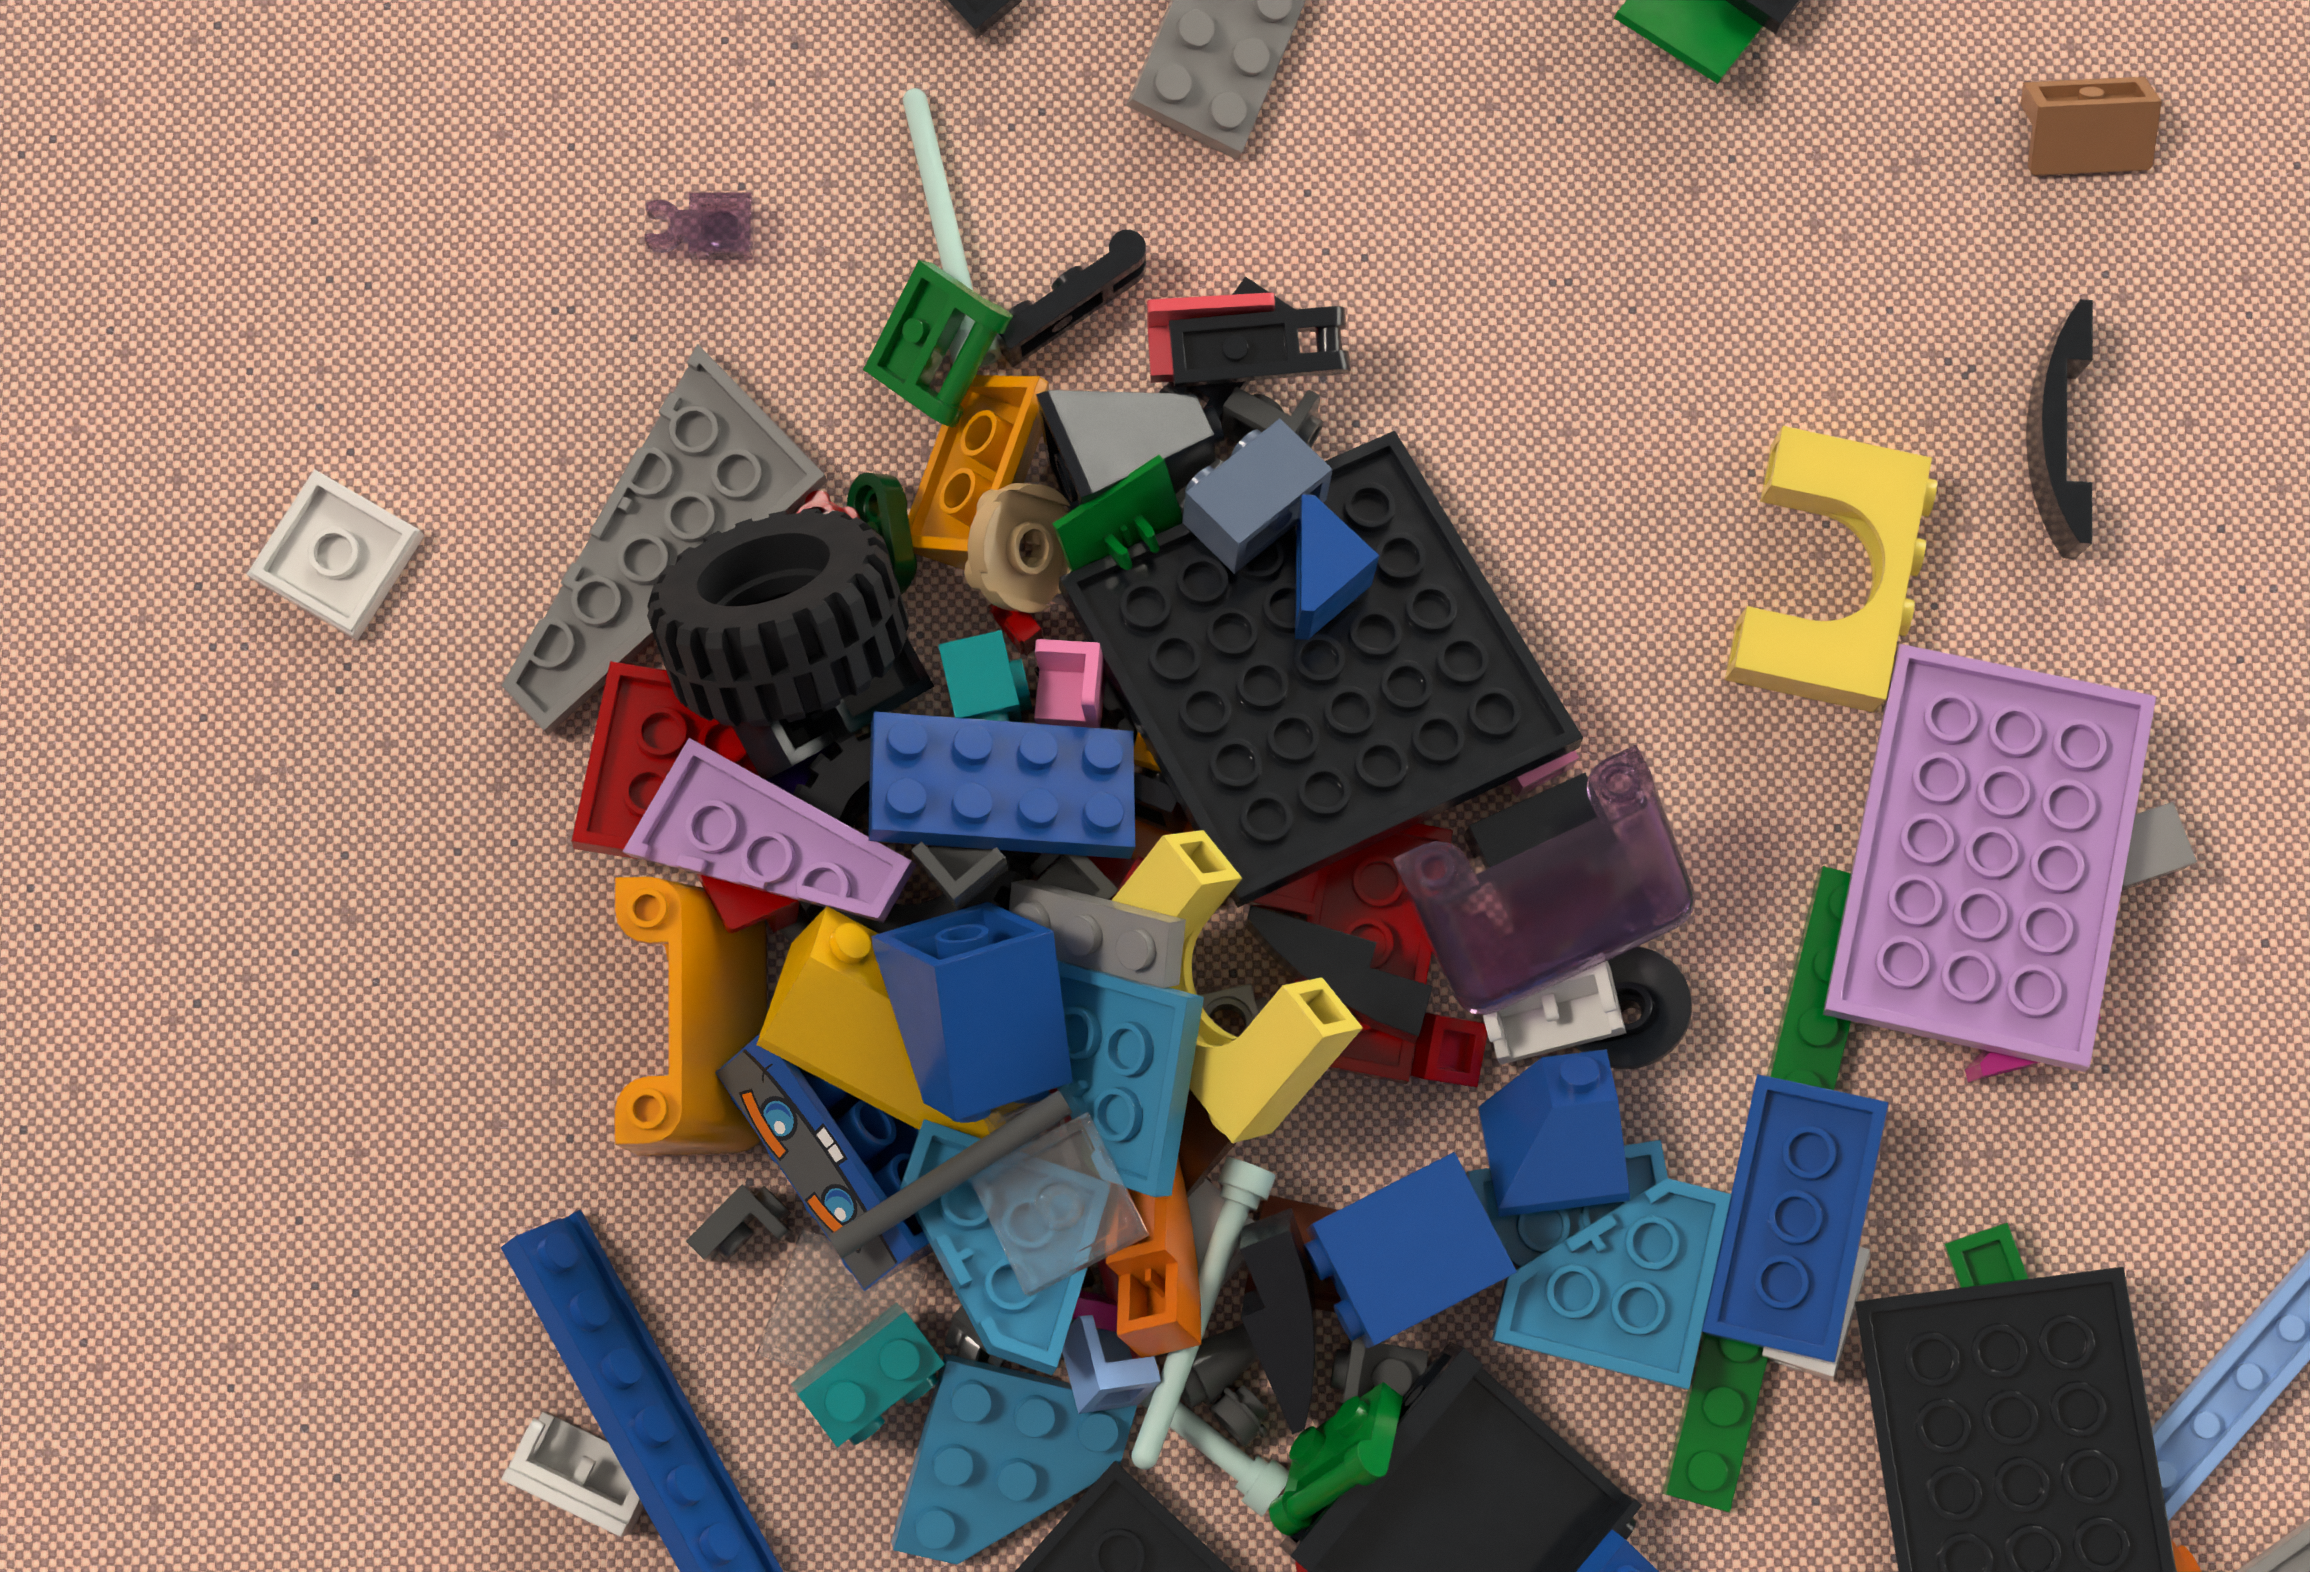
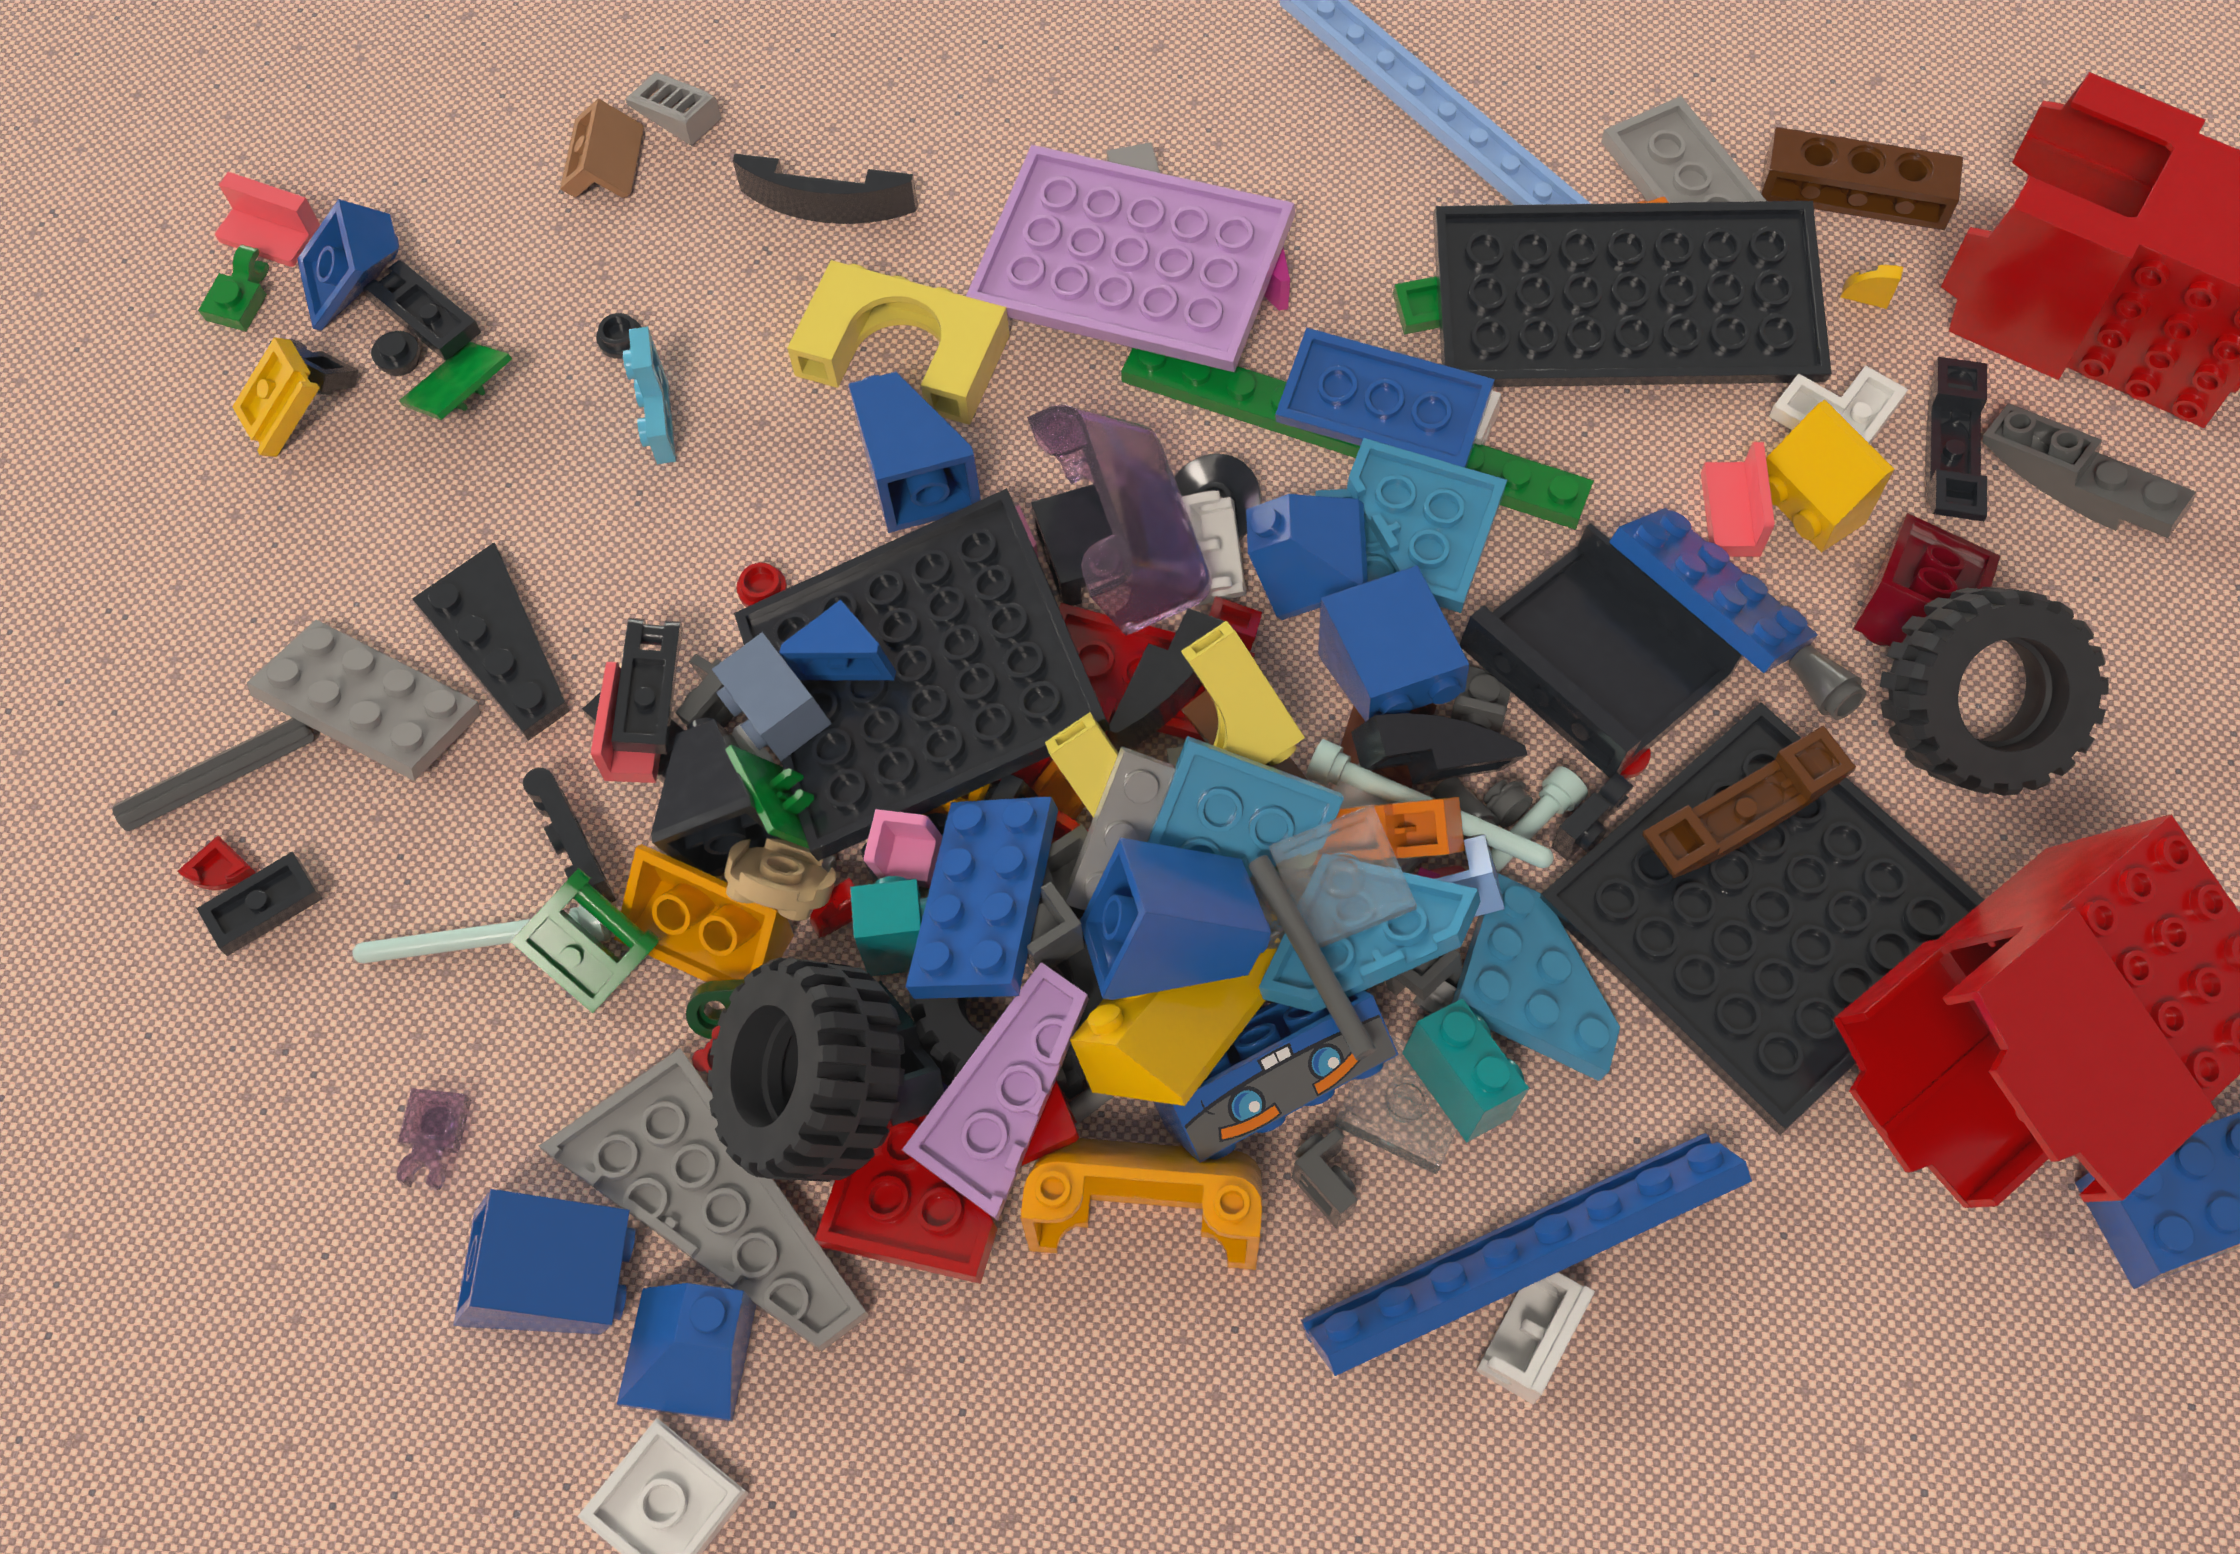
camera: 80 degrees left, 15 degrees down
(494, 549) = (688, 1350): none -> blue slope
(562, 379) = (544, 1265): none -> blue slope
(1213, 1515) = (1585, 825): none -> black plate
(1338, 1456) = (1550, 716): green plate -> none
(1348, 139) = (492, 635): none -> black wing
(1442, 457) = (759, 582): none -> red plate
(1636, 601) = (912, 452): none -> blue slope
(1710, 263) = (652, 393): none -> medium azure plate
(1793, 210) = (614, 334): none -> black plate
(2165, 238) = (687, 126): none -> light grey slope

